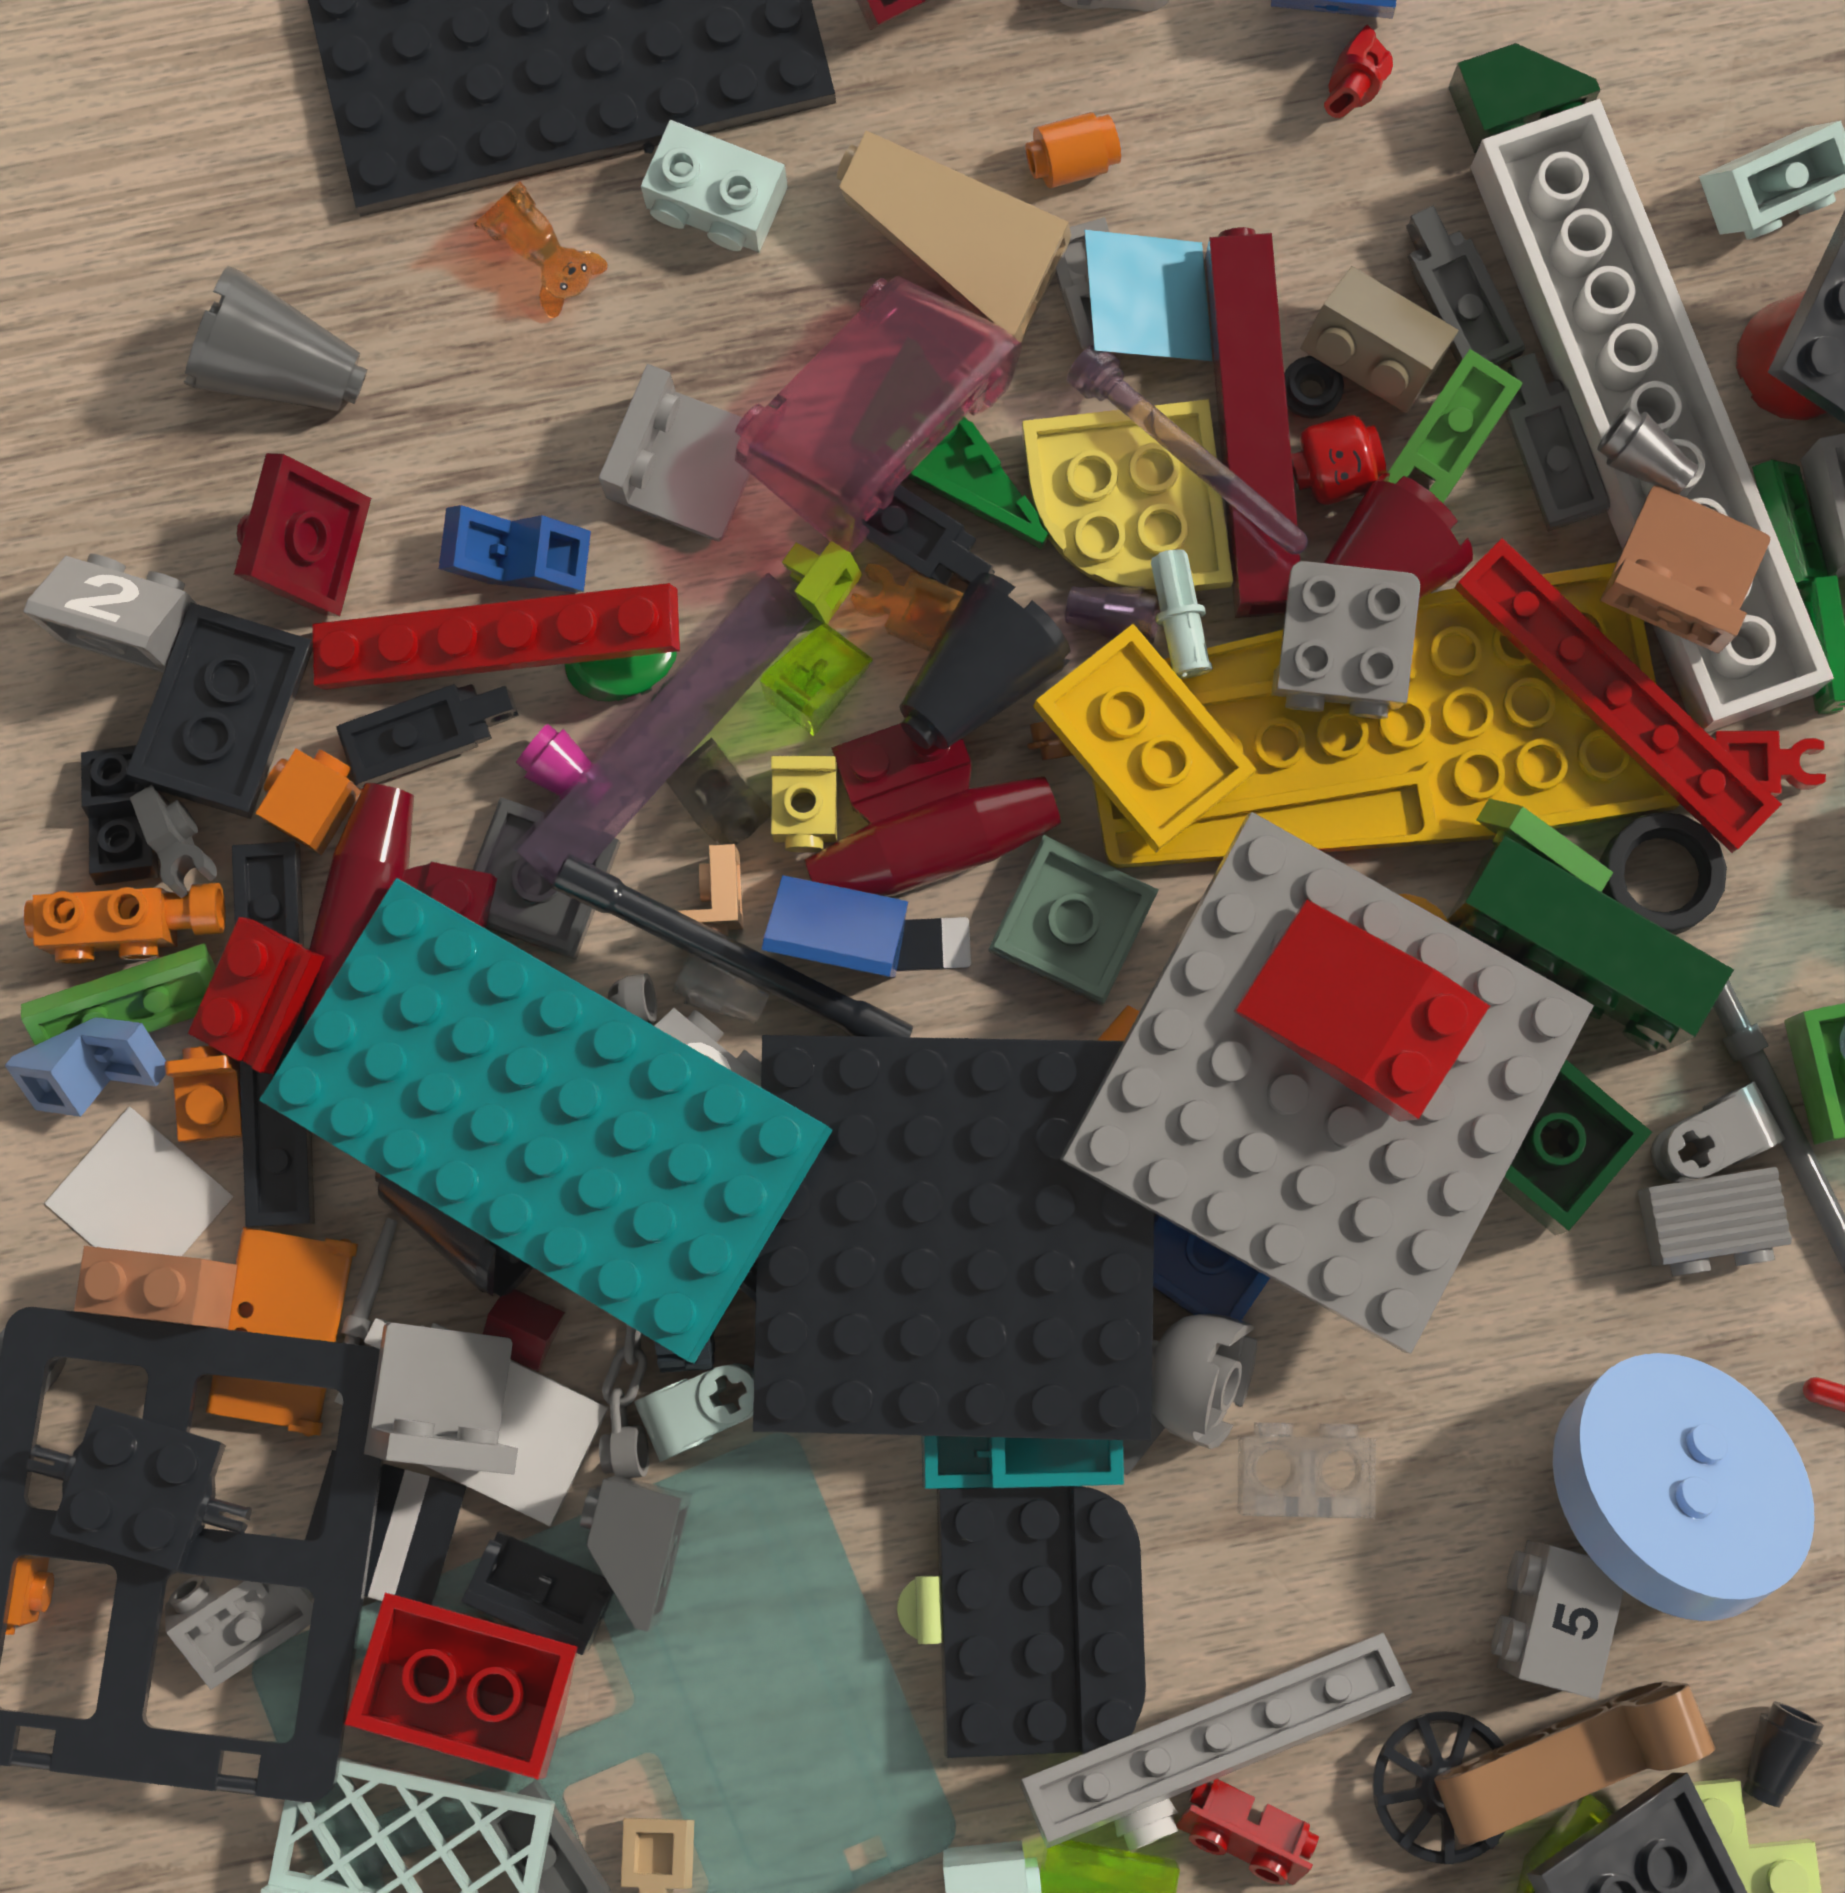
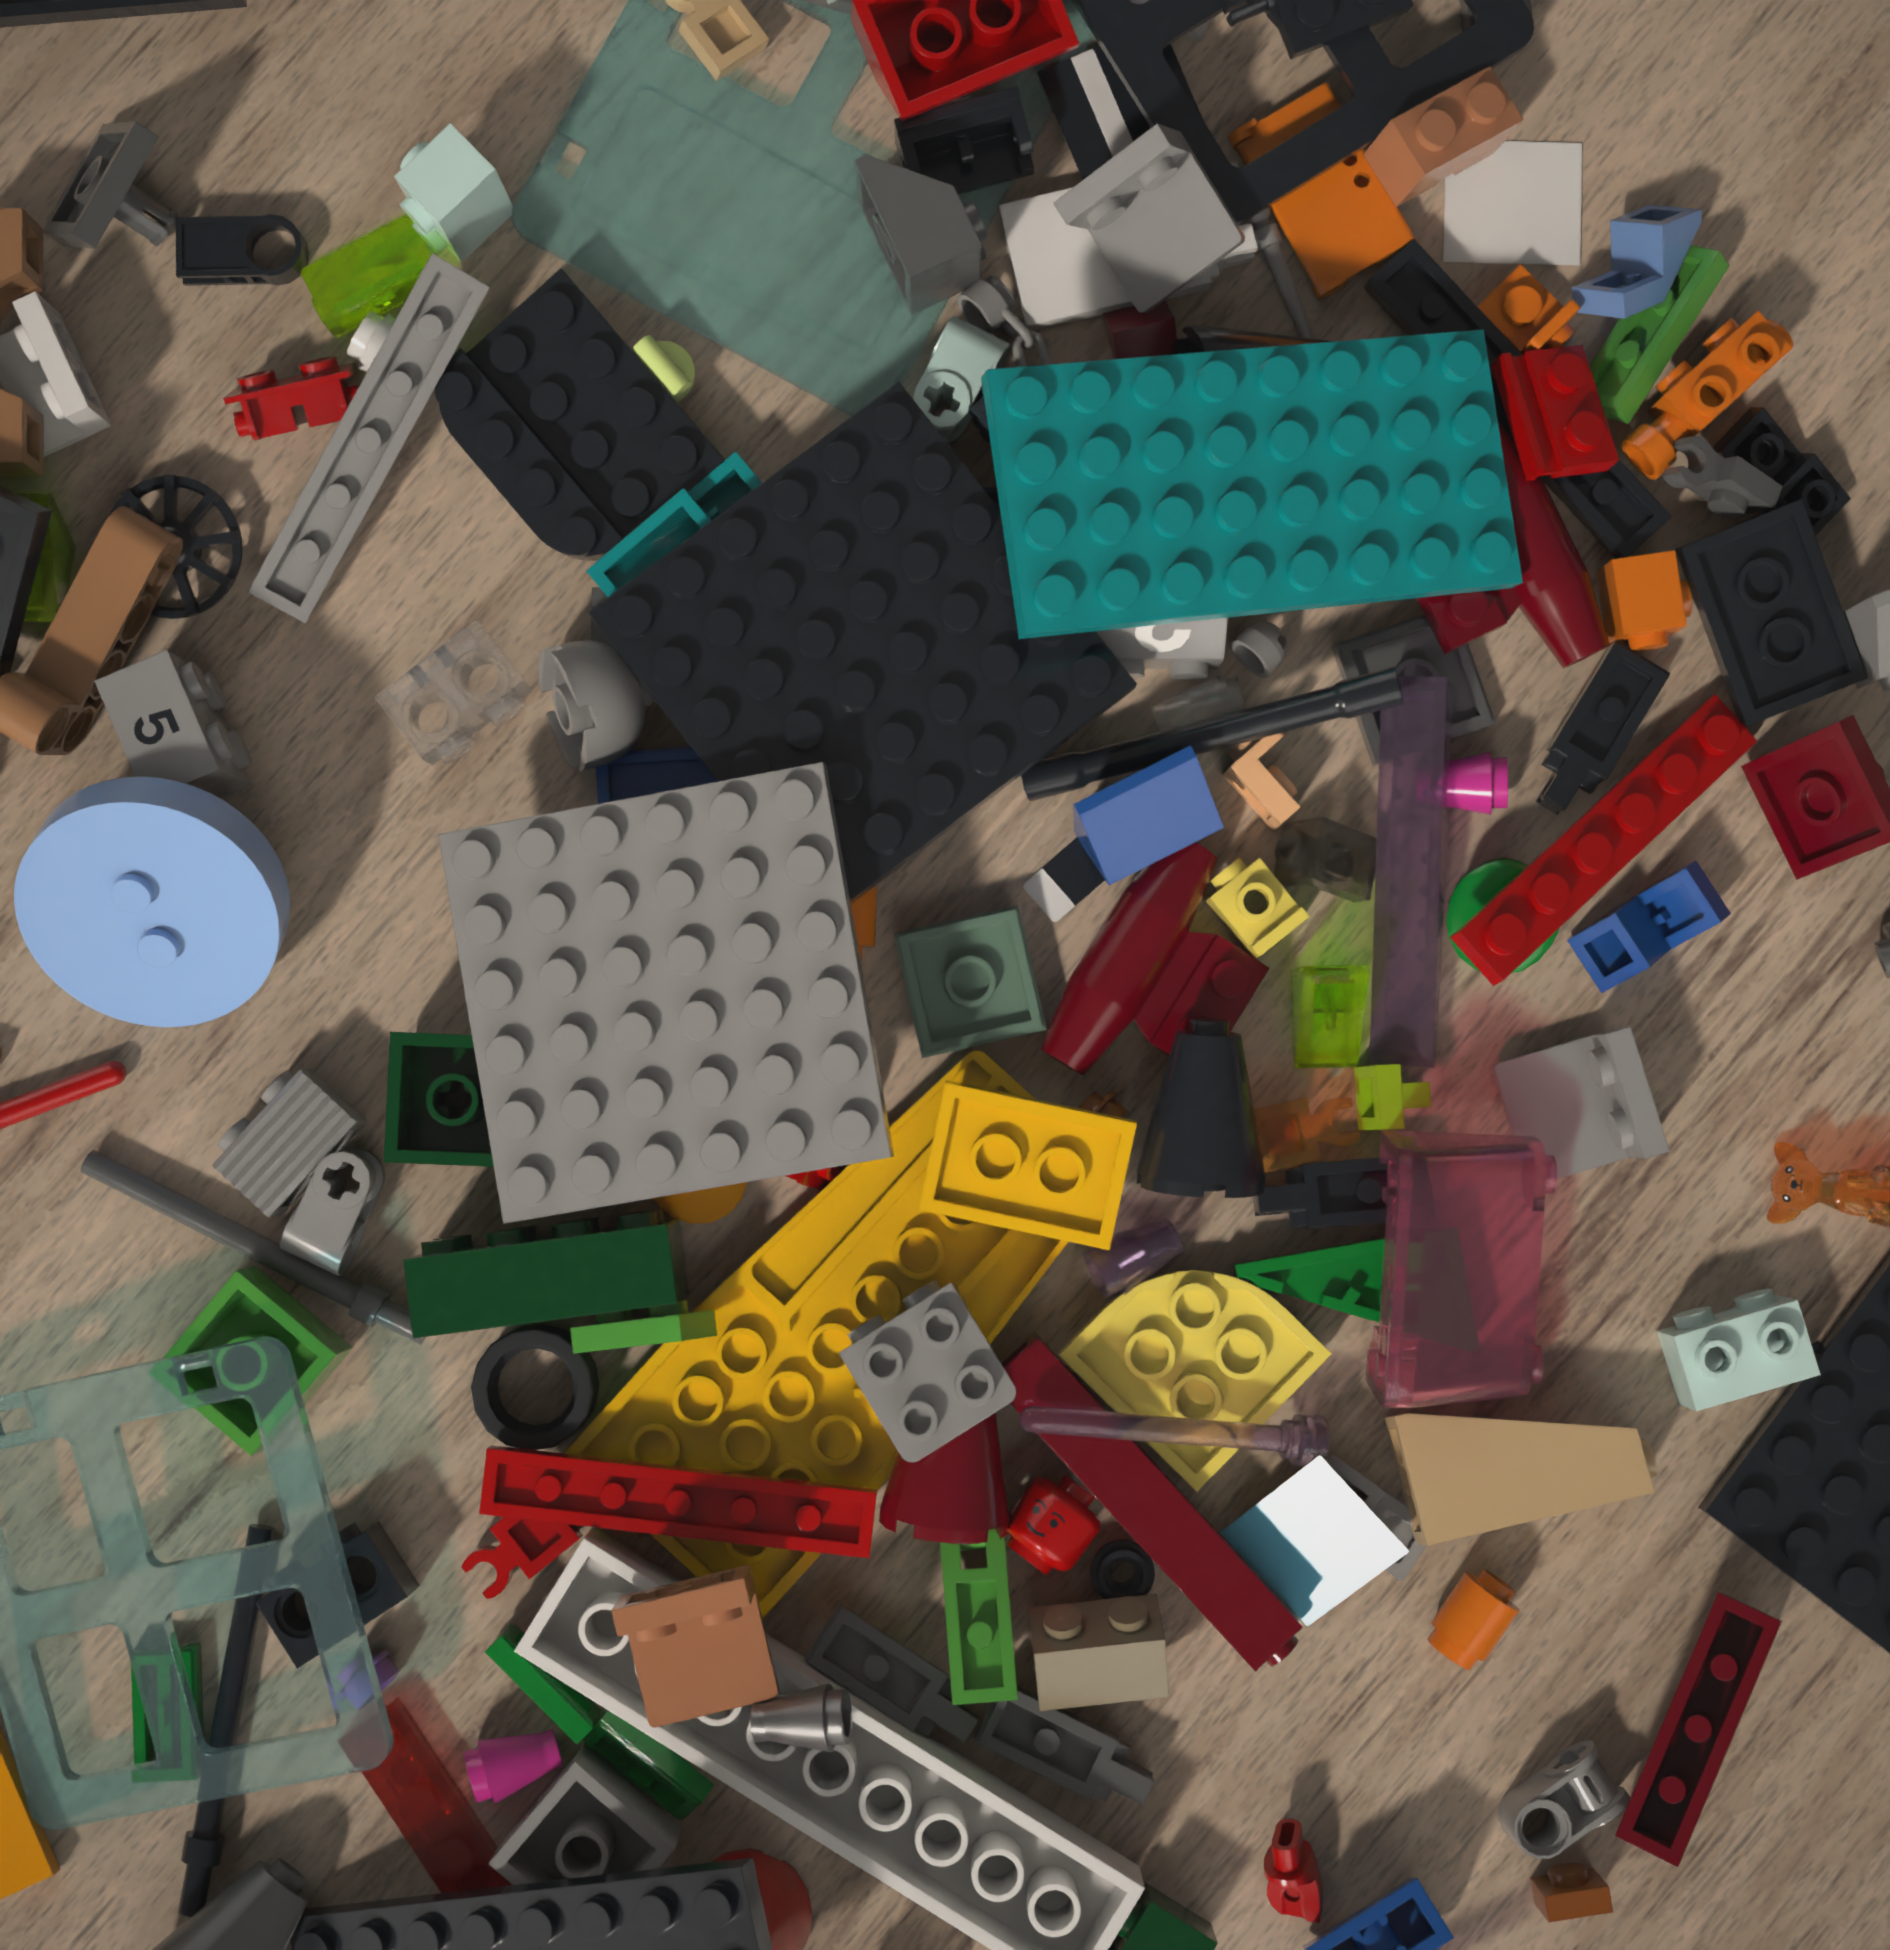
camera: 135 degrees right, 5 degrees up
(1180, 614) = (1078, 1291): light aqua axle -> none
(1362, 1011) = (678, 1060): red slope -> none

